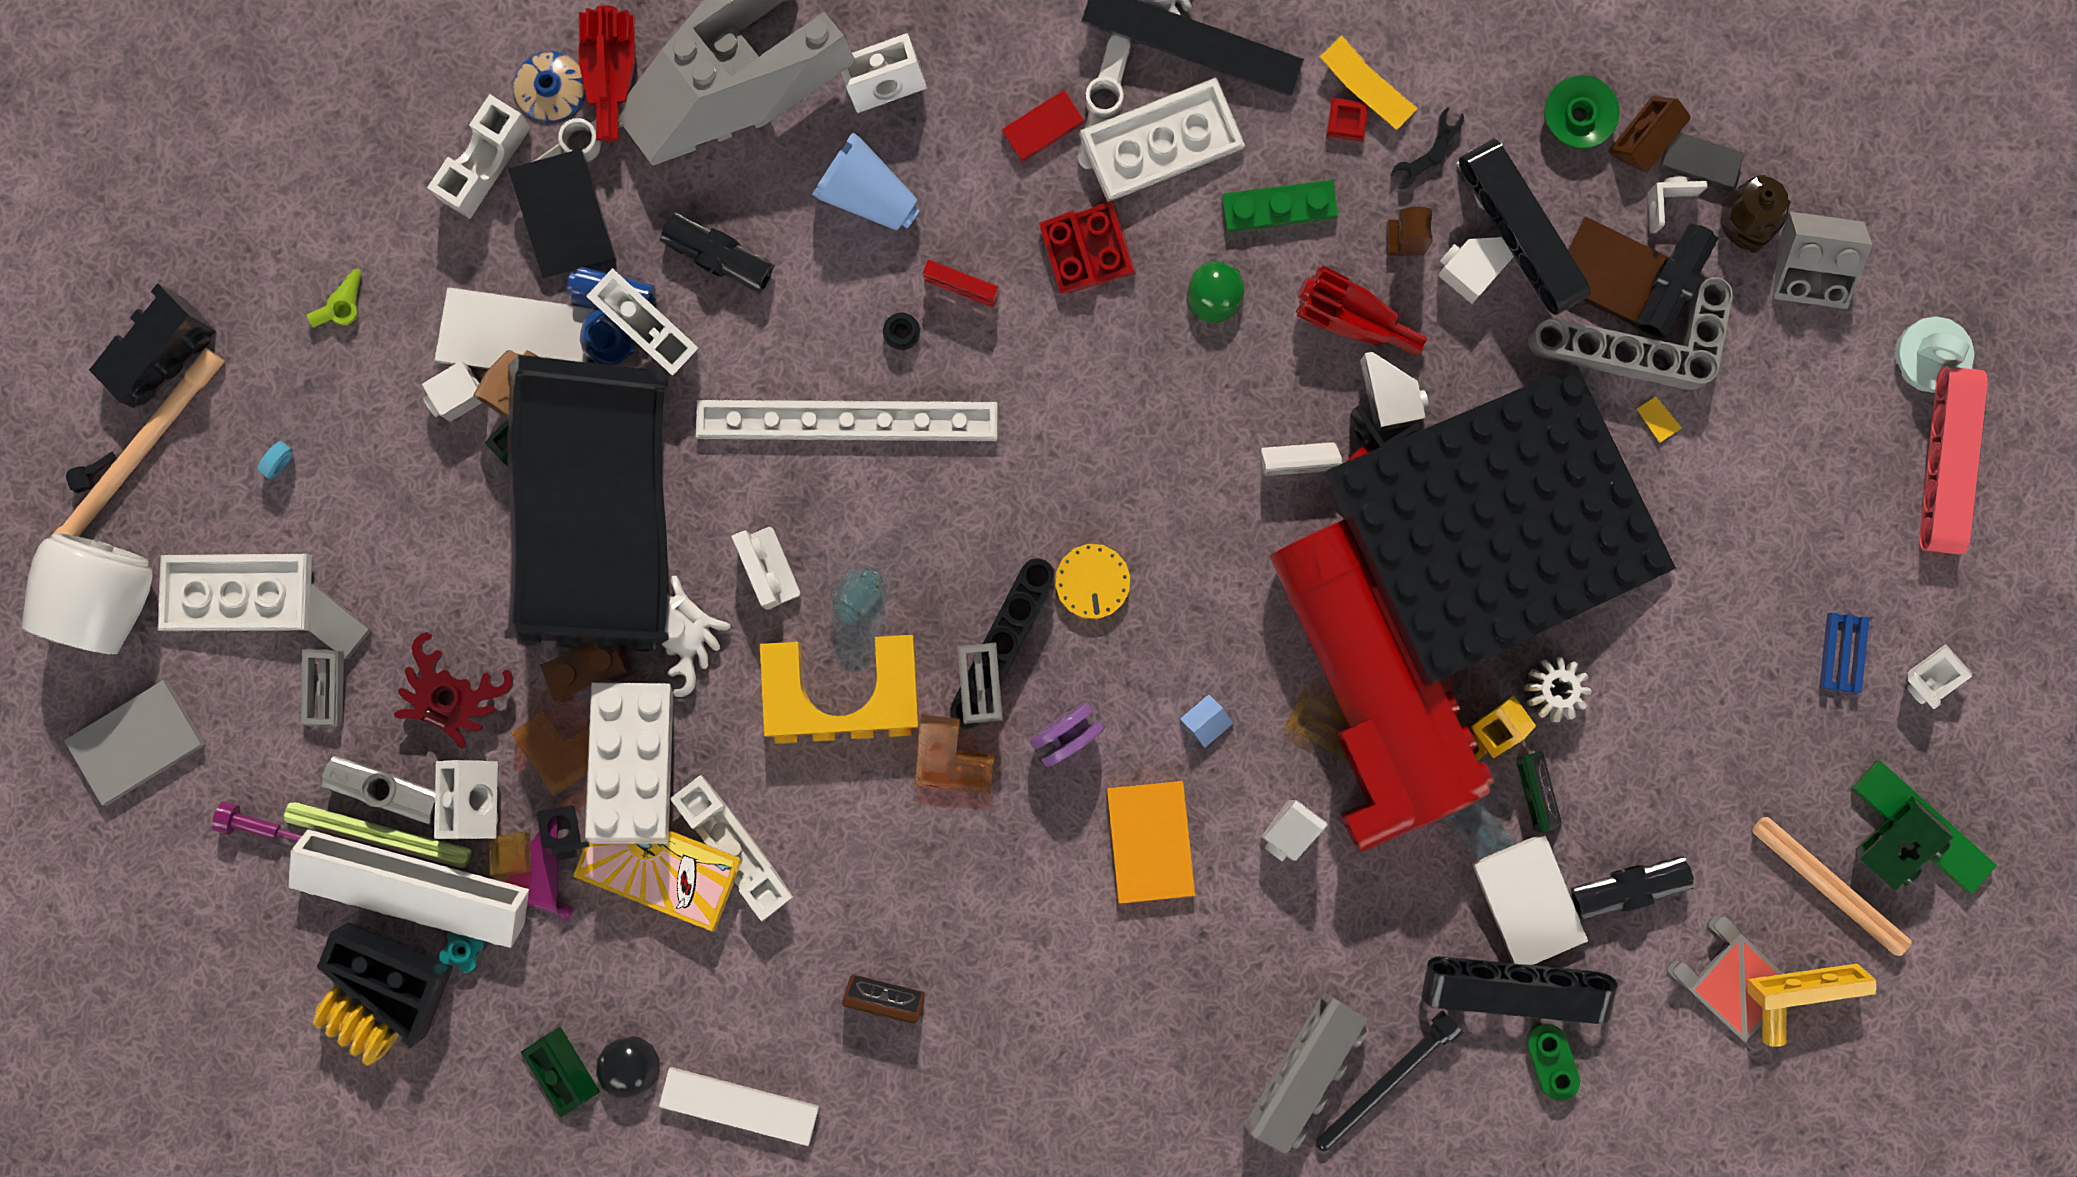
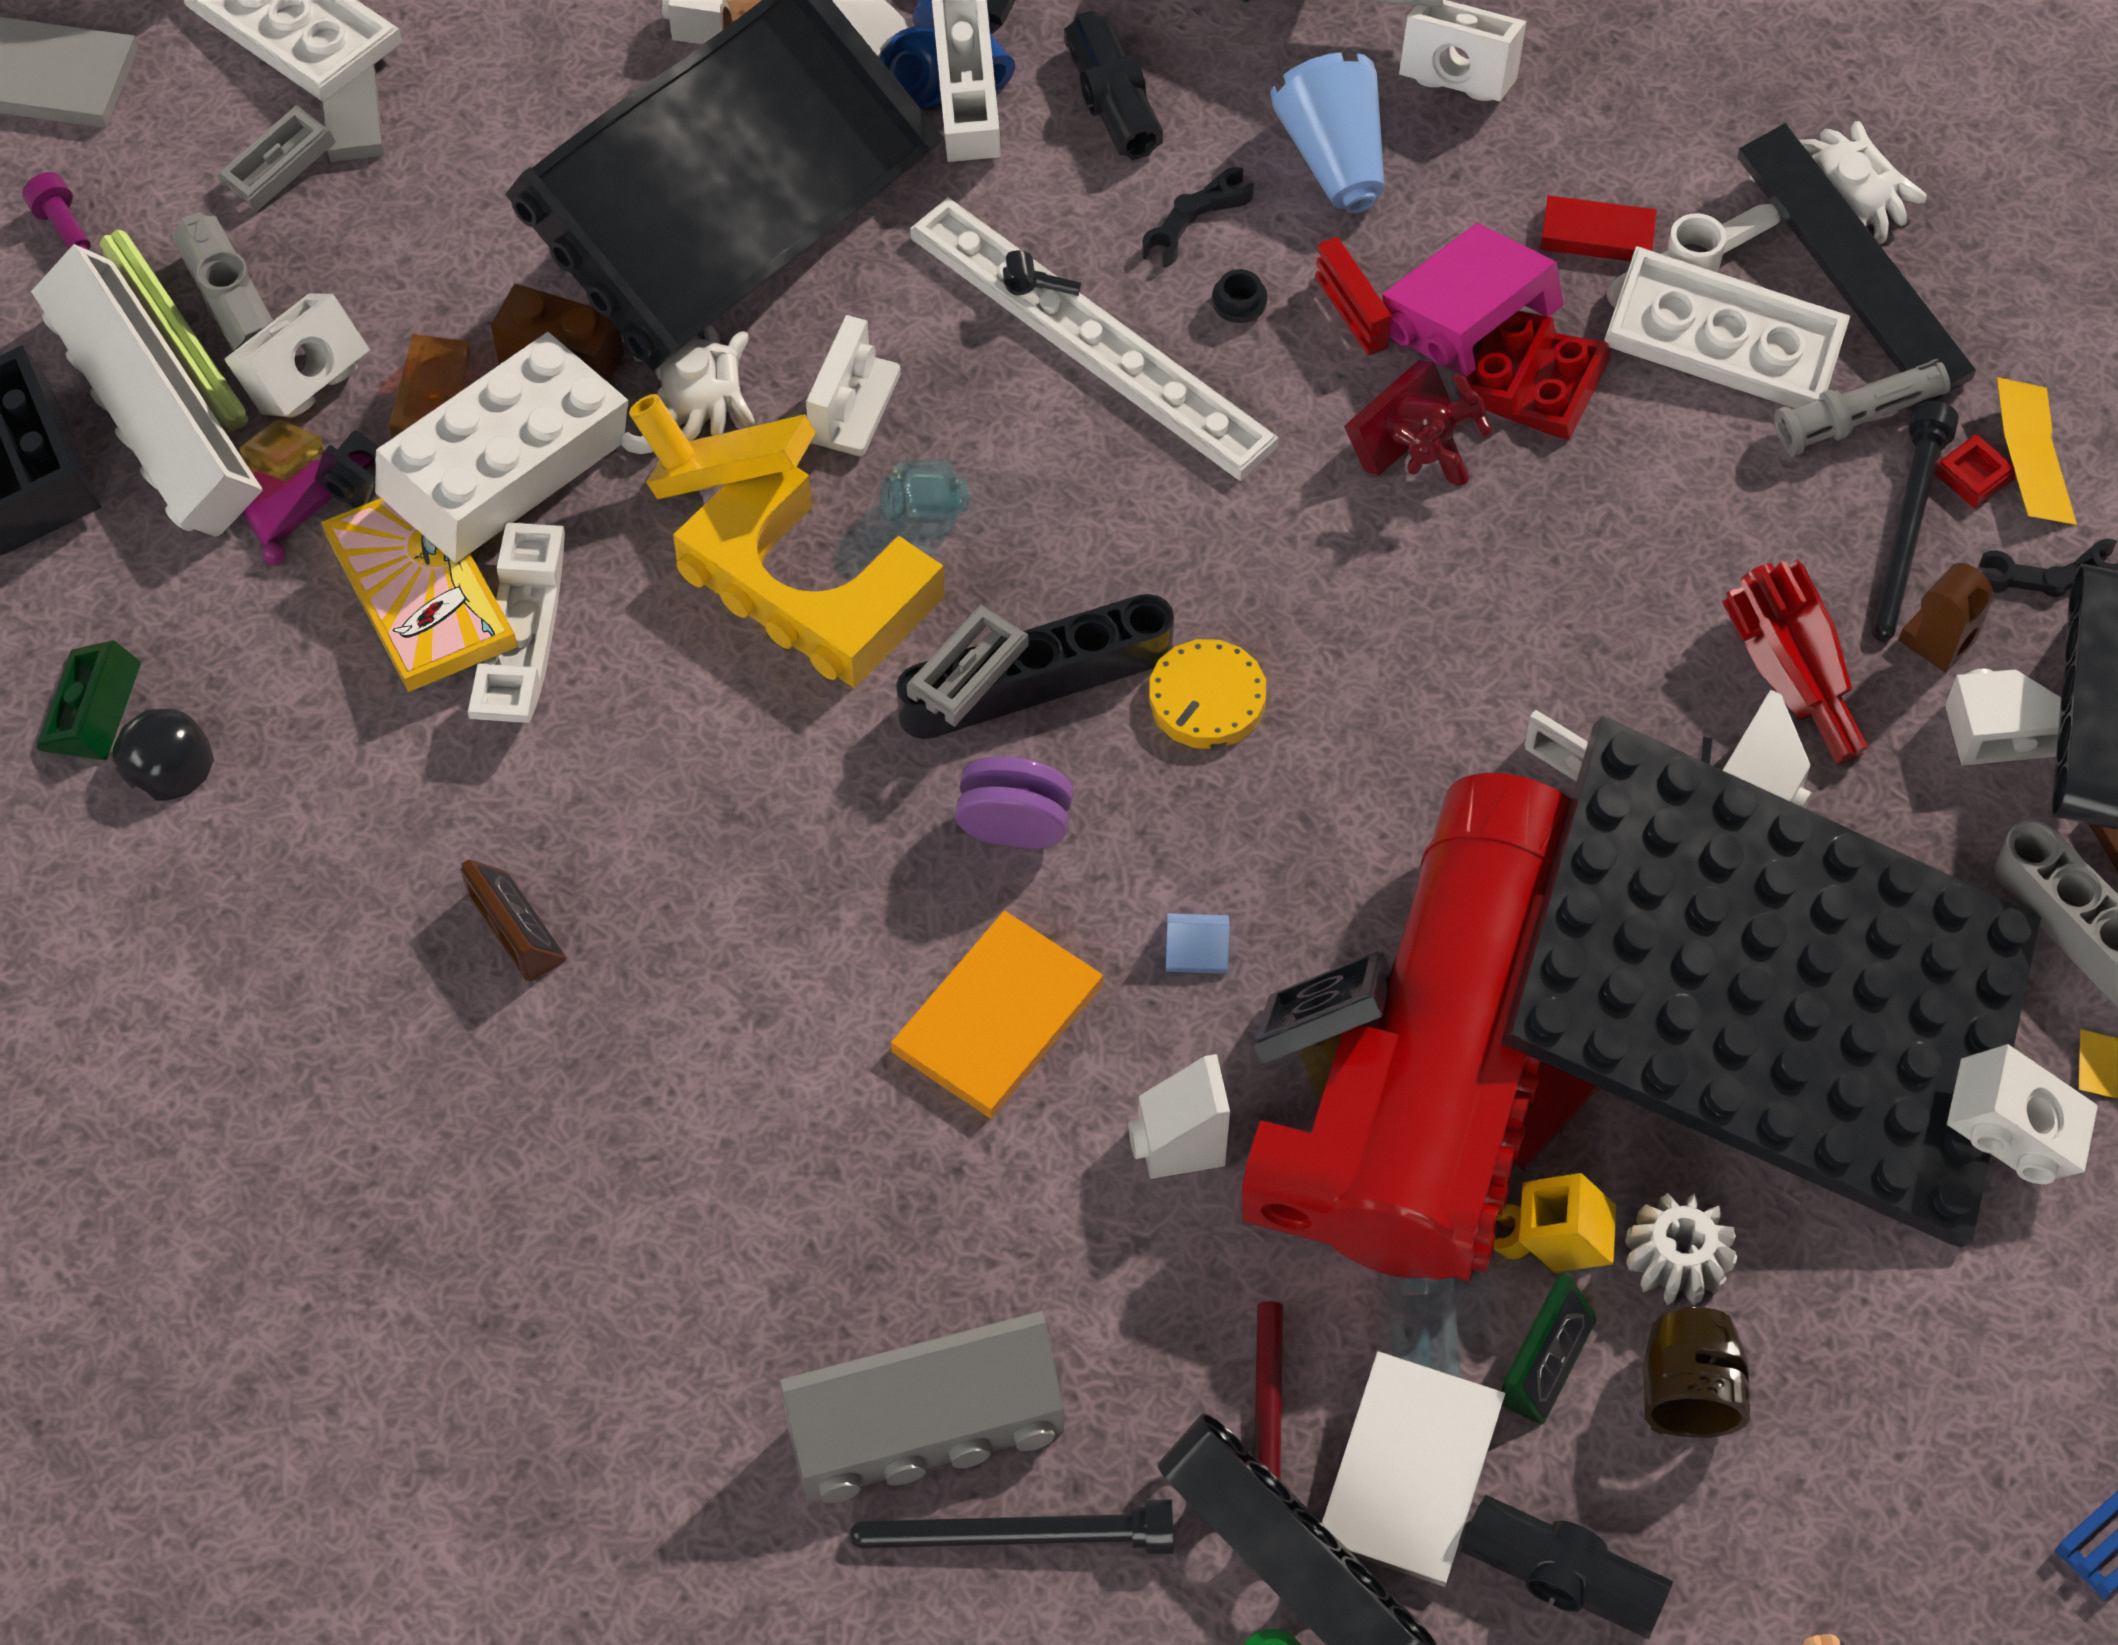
camera: 40 degrees right, 25 degrees down
(445, 699) = (383, 254): dark red animal -> none
(465, 961) = (132, 511): teal plate -> none
(739, 1106) = (234, 898): white tile -> none
(743, 669) = (720, 458): none -> yellow piece
(785, 422) = (1022, 279): none -> black hand
(823, 297) = (1187, 207): none -> black piece
(943, 765) = (838, 725): clear orange plate -> none
(1023, 237) = (1467, 294): none -> dark pink panel
(1054, 337) = (1417, 418): none -> dark red piece
(1215, 292) = (1646, 519): green hair -> none
(1259, 147) = (1838, 413): none -> light grey pin
(1279, 206) = (1809, 495): green plate -> none
(1310, 116) = (1931, 429): none -> black piece
(1316, 725) = (1323, 1007): none -> black tile
(1435, 917) = (1269, 1385): none -> dark red bar
(1616, 749) = (1696, 1375): none -> dark brown helmet
(1658, 491) = (2022, 1115): none -> white brick

